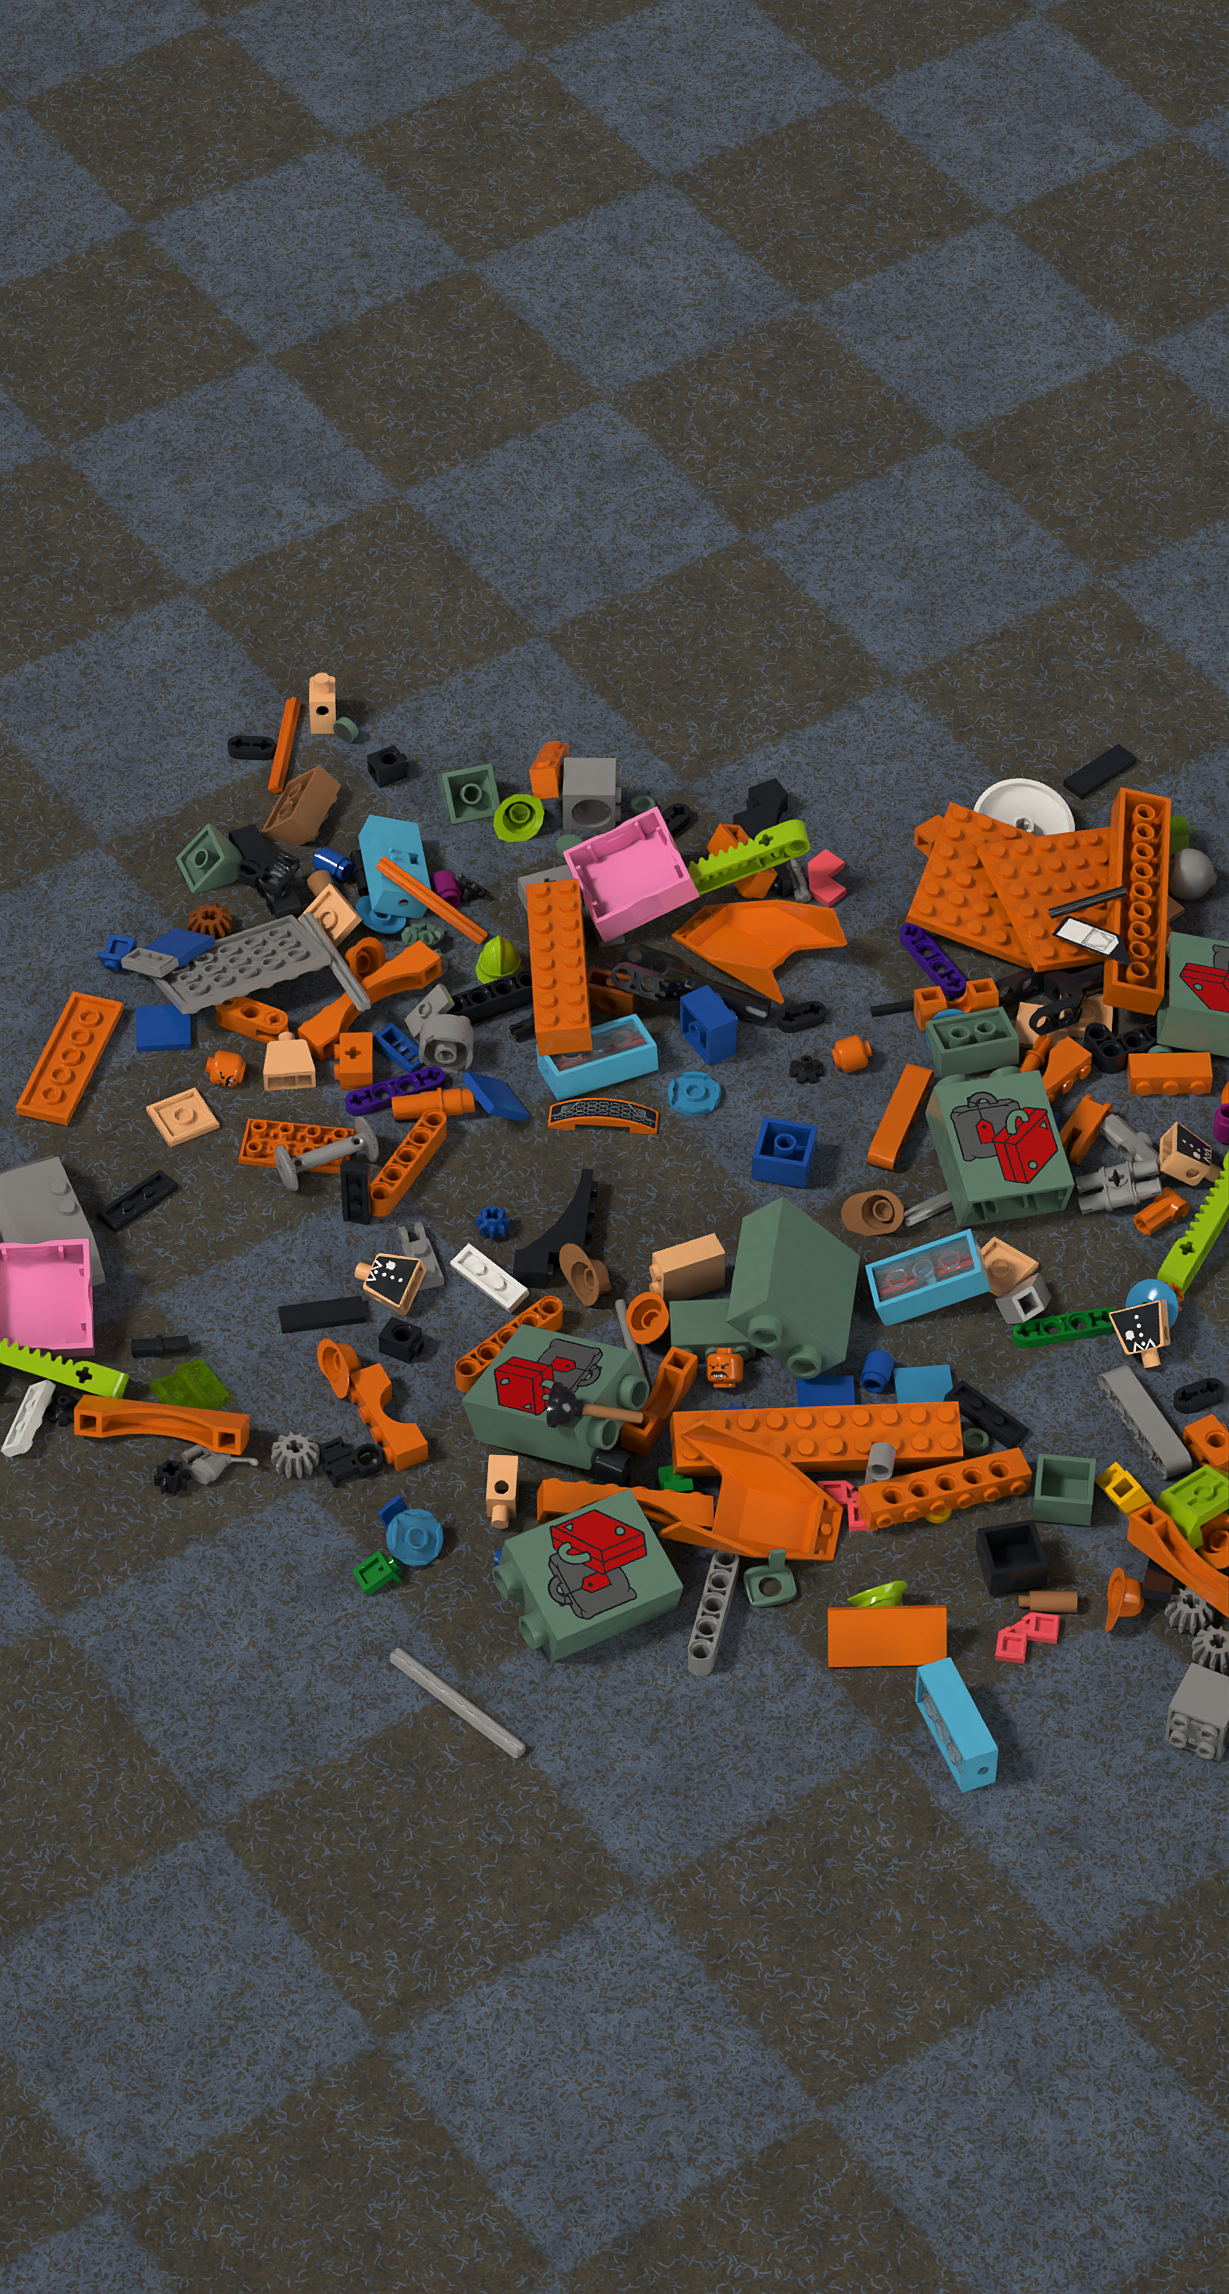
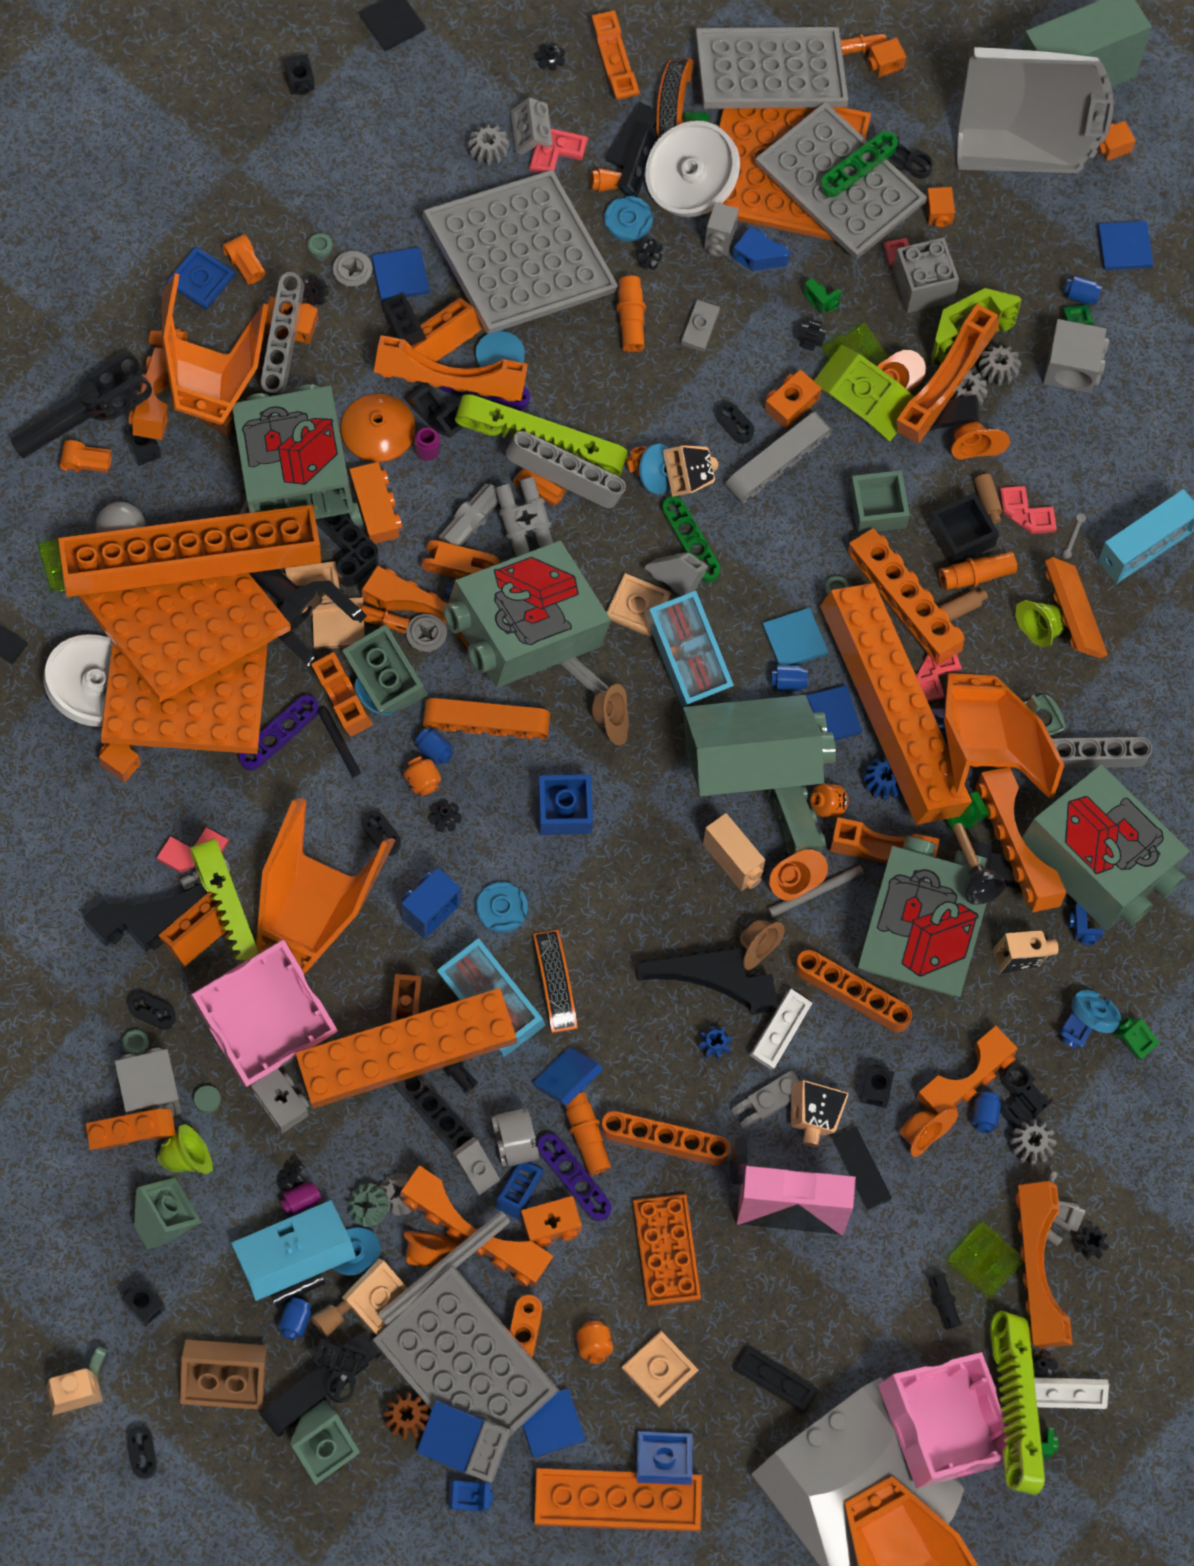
camera: 110 degrees left, 20 degrees up
(94, 1096) = (664, 1458): none -> blue tile
(284, 745) = (130, 1420): orange axle -> none
(288, 1064) = (571, 1284): light nougat torso -> none
(295, 1216) = (795, 1200): none -> bright pink tile
(341, 1423) = (986, 1112): none -> blue brick
(365, 1137) = (684, 1211): light grey hose -> none
(431, 900) = (339, 1197): orange axle -> none
(498, 960) = (385, 1125): lime piece -> none
(679, 981) = (382, 942): black piece -> none
(880, 1462) = (915, 643): light grey piece -> none
(881, 1070) = (434, 746): none -> blue brick
(923, 1544) = (964, 604): none -> medium nougat cylinder
(959, 1564) = (977, 571): none -> orange piece
(987, 1415) = (809, 582): black tile -> none
(1004, 1686) = (1080, 518): none -> light grey hinge
(1088, 902) = (217, 584): black bar -> none
(1092, 938) = (261, 573): sticker -> none
(1122, 1489) = (885, 441): yellow arch -> none
(1157, 1231) = (565, 469): none -> light grey beam
(1186, 1156) = (478, 470): light nougat torso -> none

